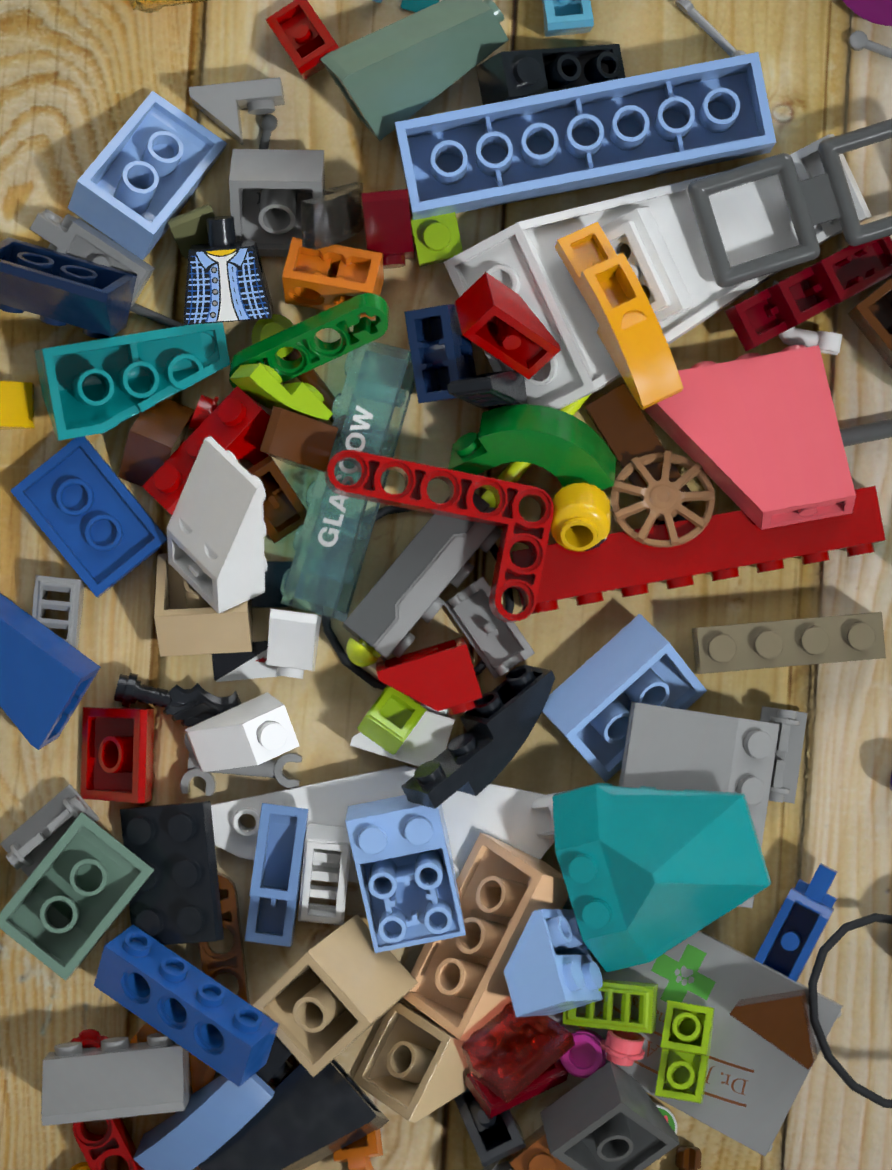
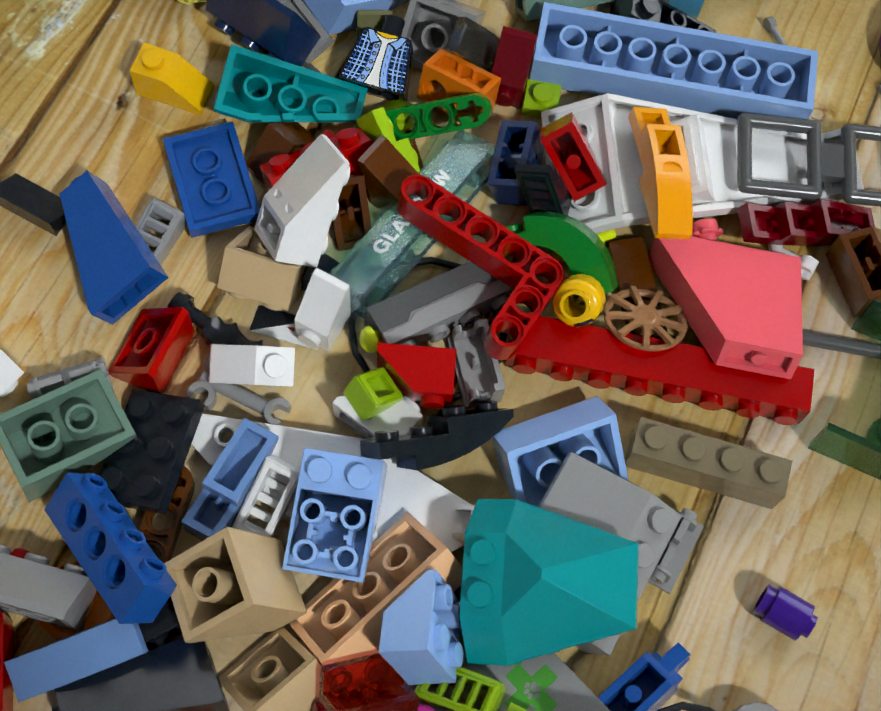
camera: 15 degrees right, 20 degrees down
(695, 347) = (706, 229): none -> coral plate

